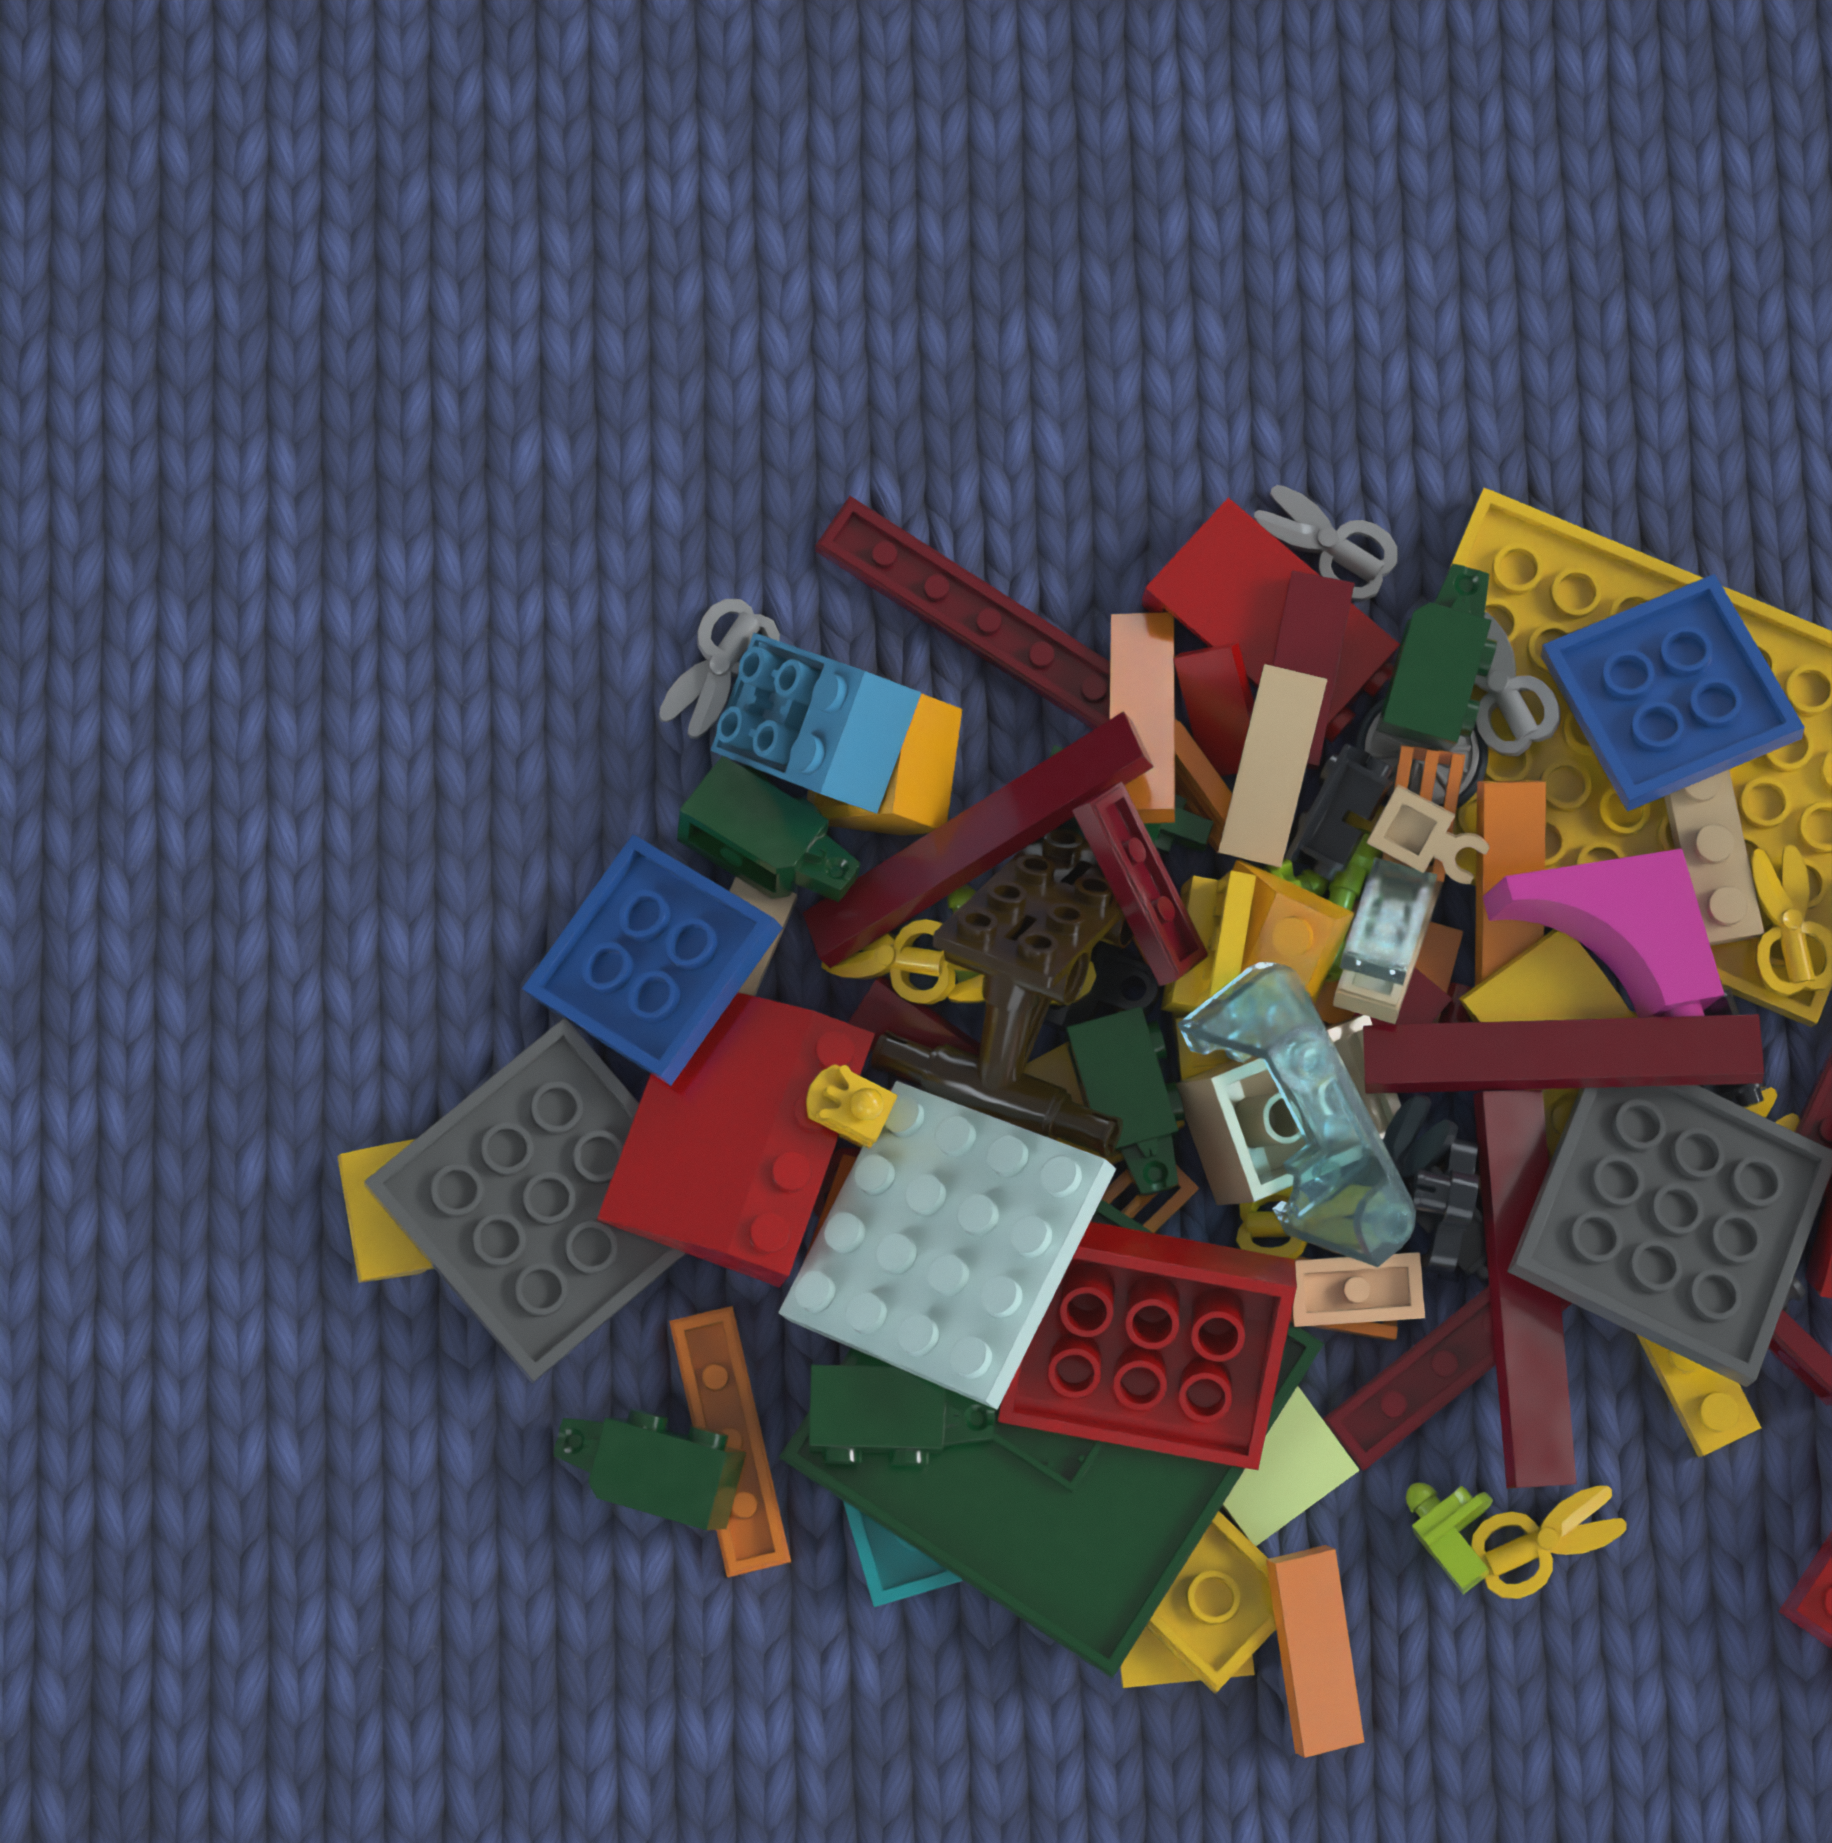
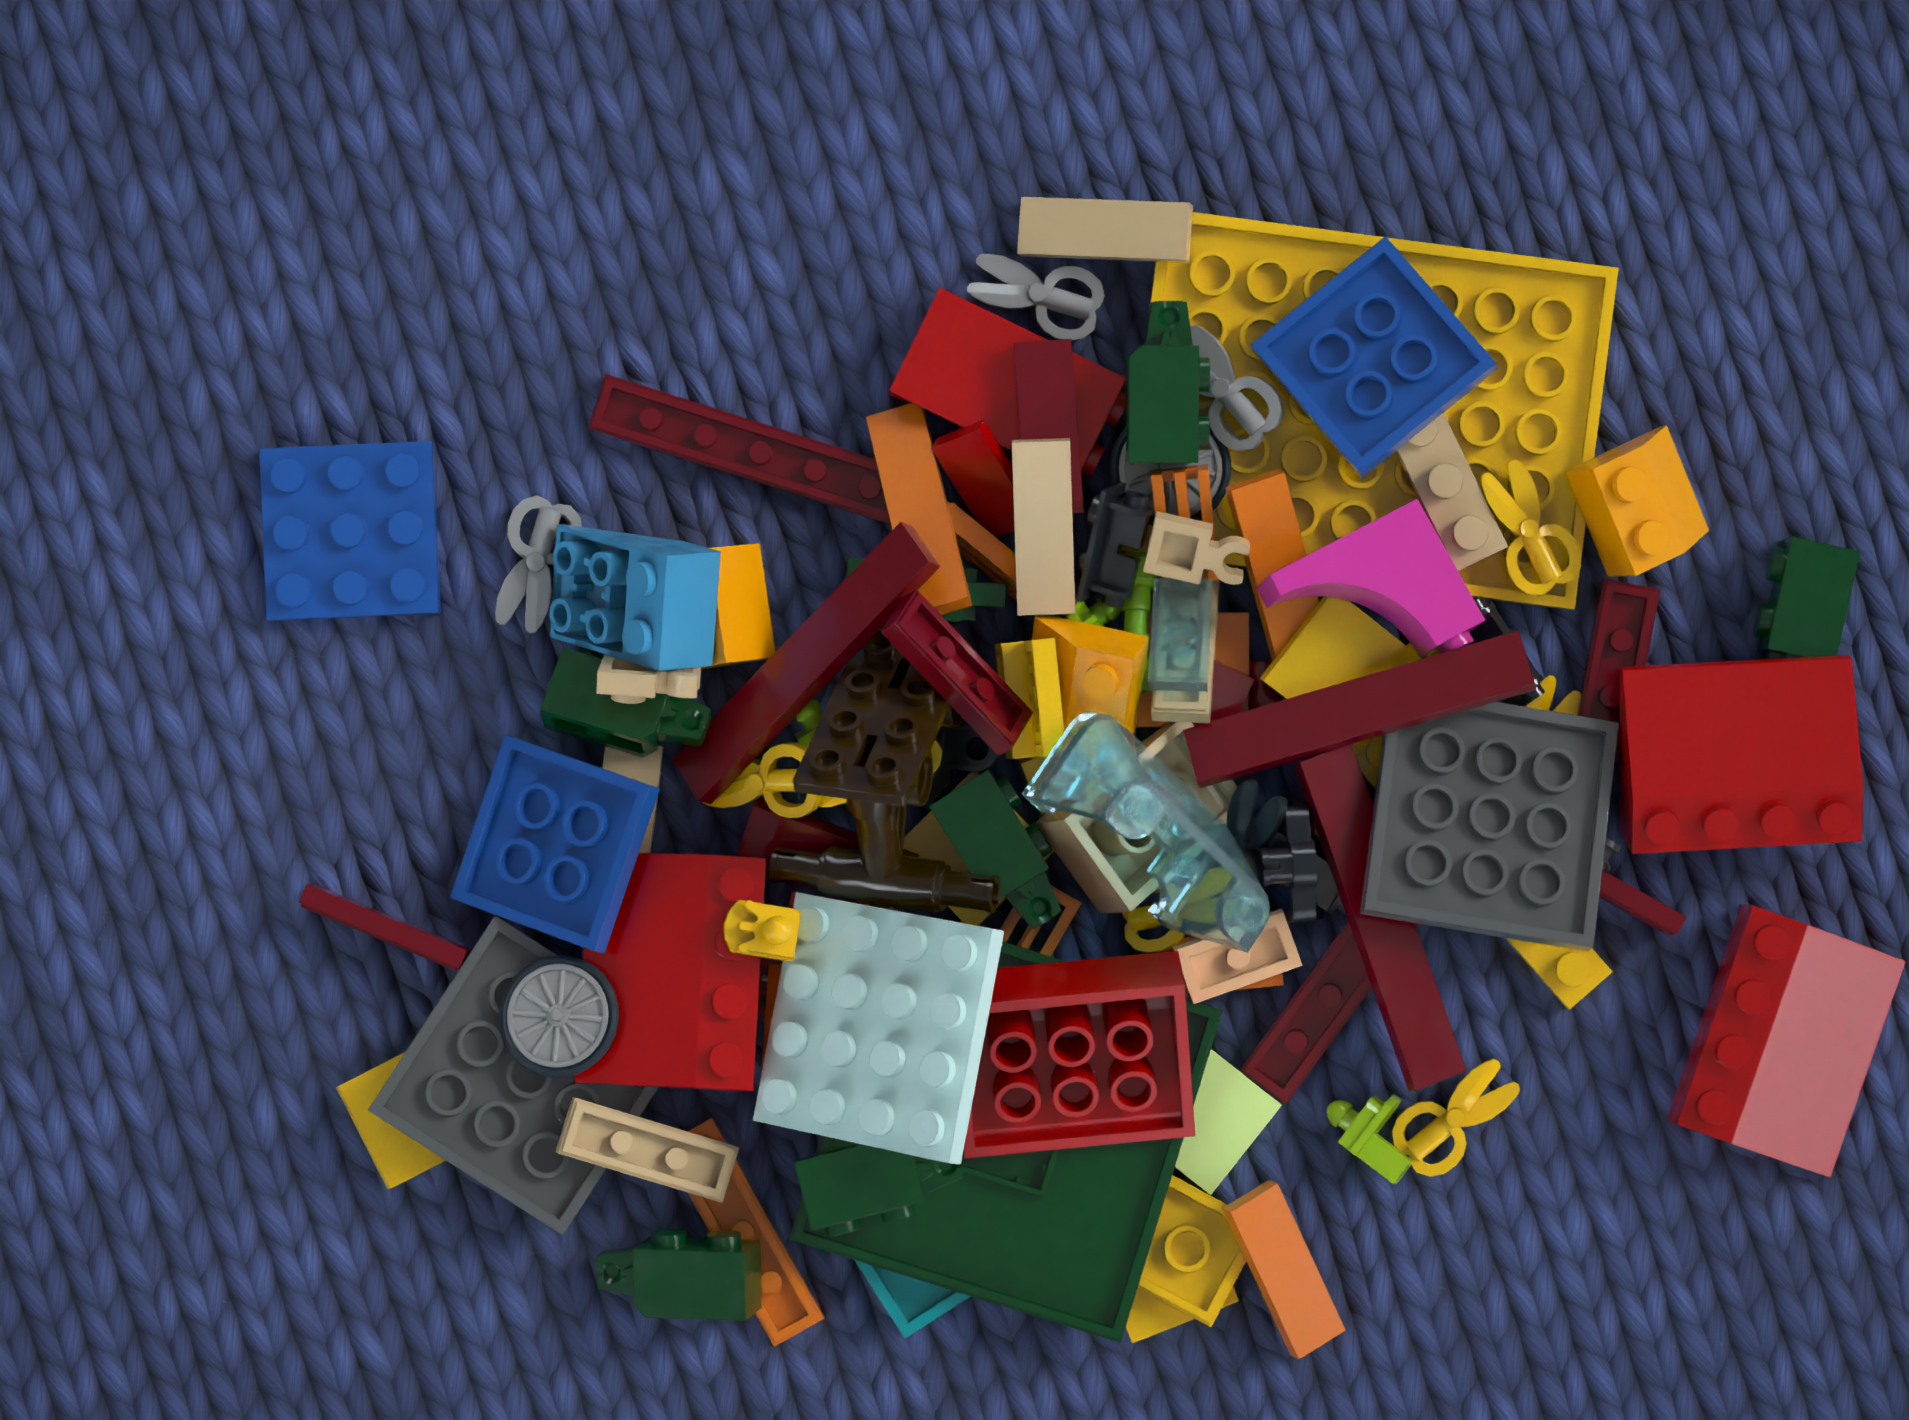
camera: 15 degrees left, 10 degrees up
(440, 997) = (384, 926): none -> dark red tile
(533, 582) = (349, 531): none -> blue plate
(601, 1140) = (559, 1016): none -> light grey wheel
(653, 1315) = (647, 1149): none -> tan tile
(787, 802) = (634, 683): none -> tan plate
(1417, 492) = (1105, 229): none -> tan tile

